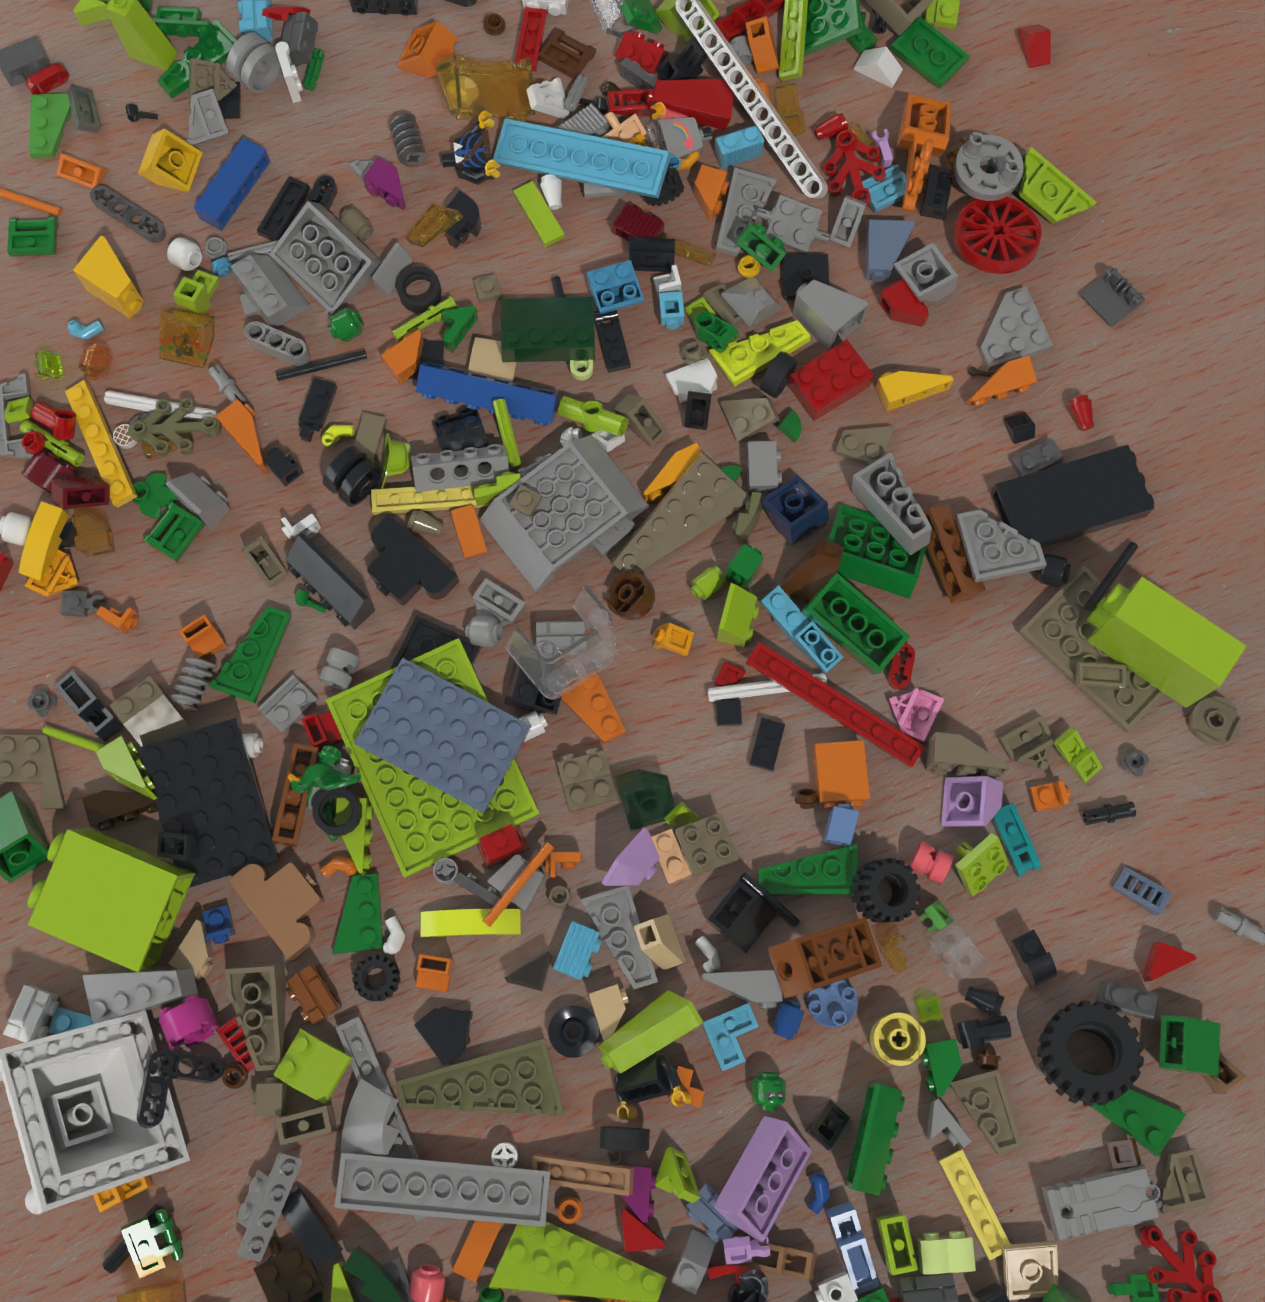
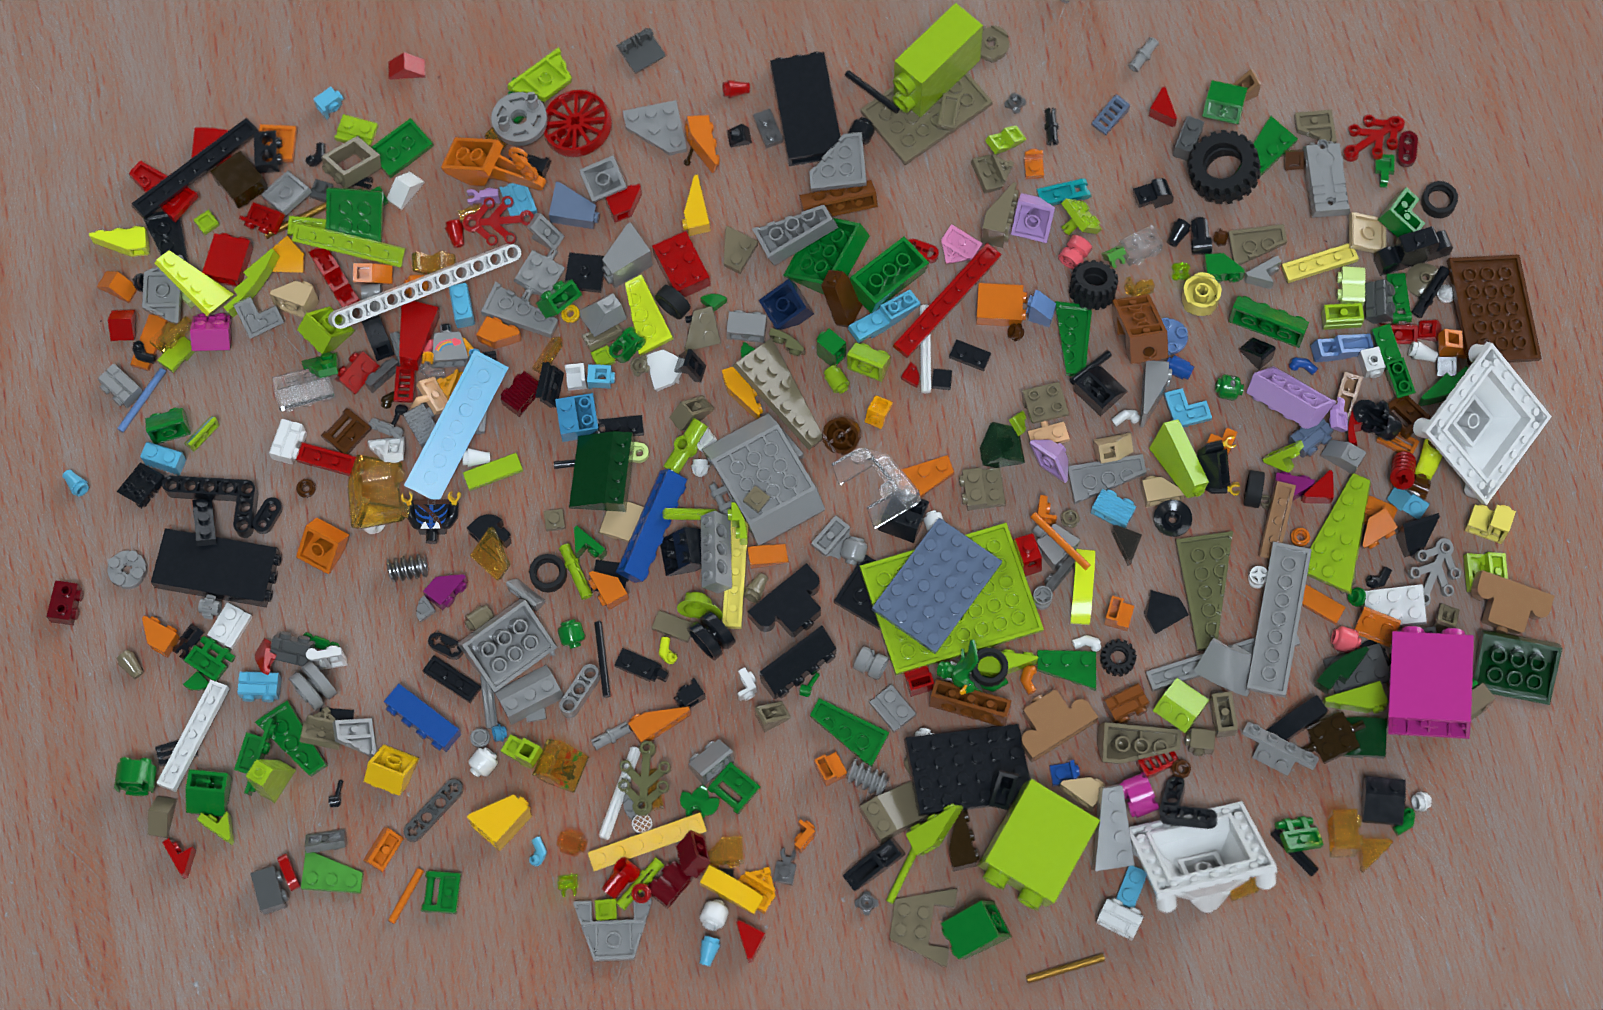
camera: 80 degrees left, 5 degrees down
(560, 632) = (866, 491): light grey brick -> none

